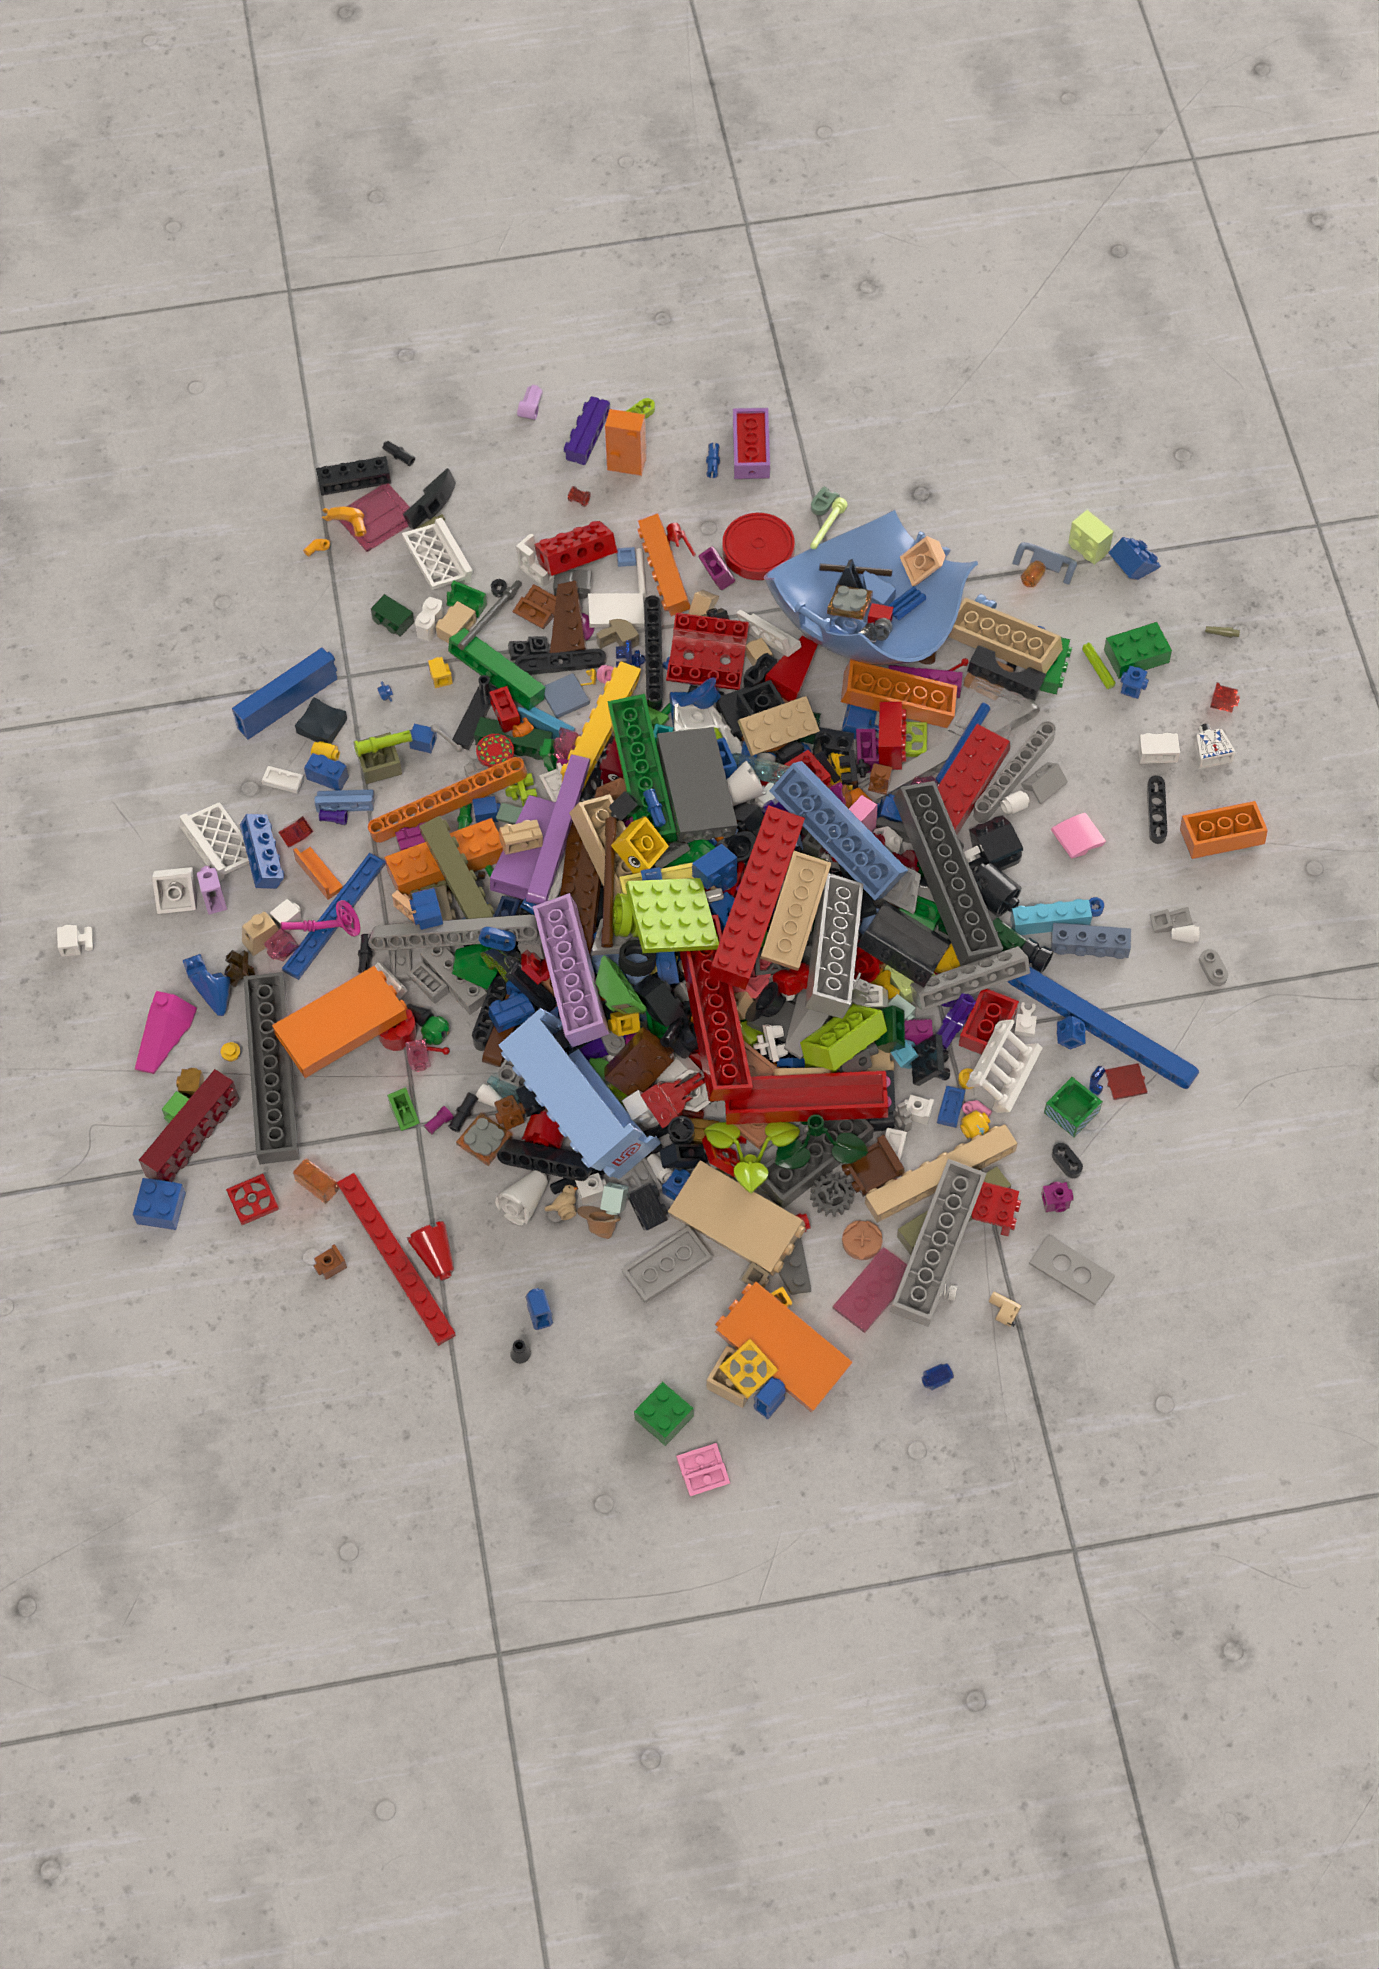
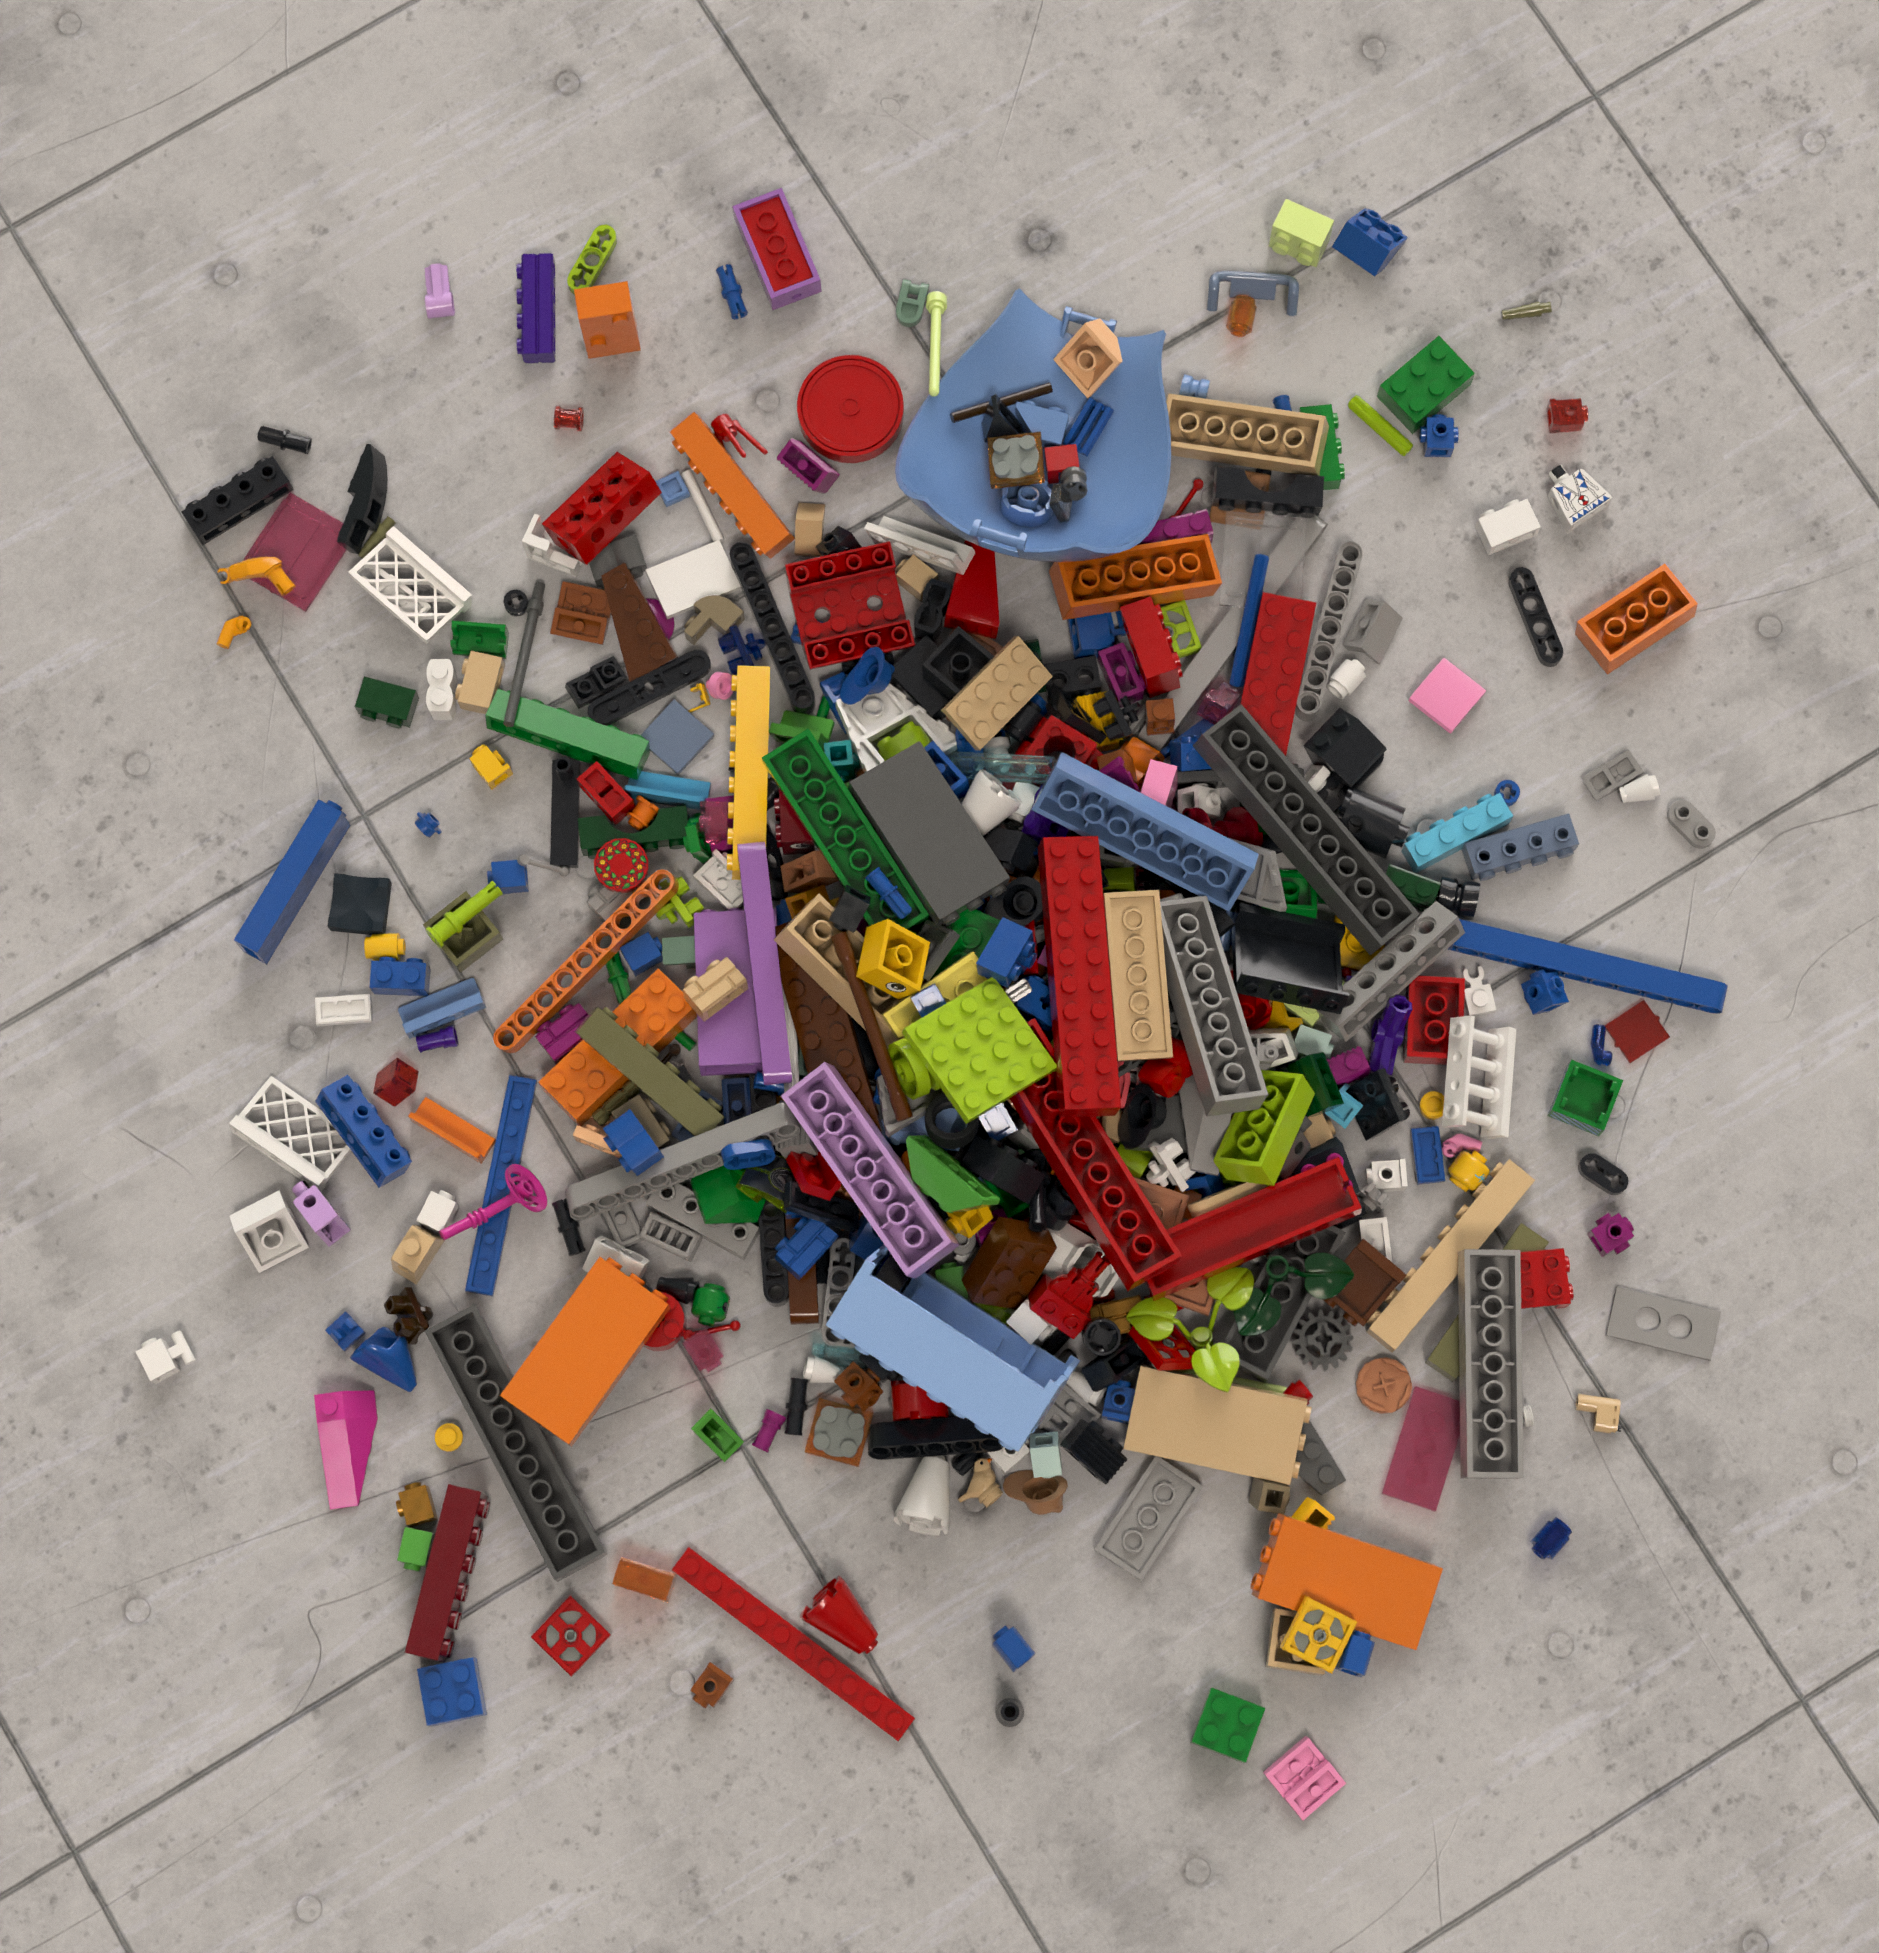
camera: 20 degrees left, 15 degrees up
(281, 945) = (451, 1260): clear pink brick -> none

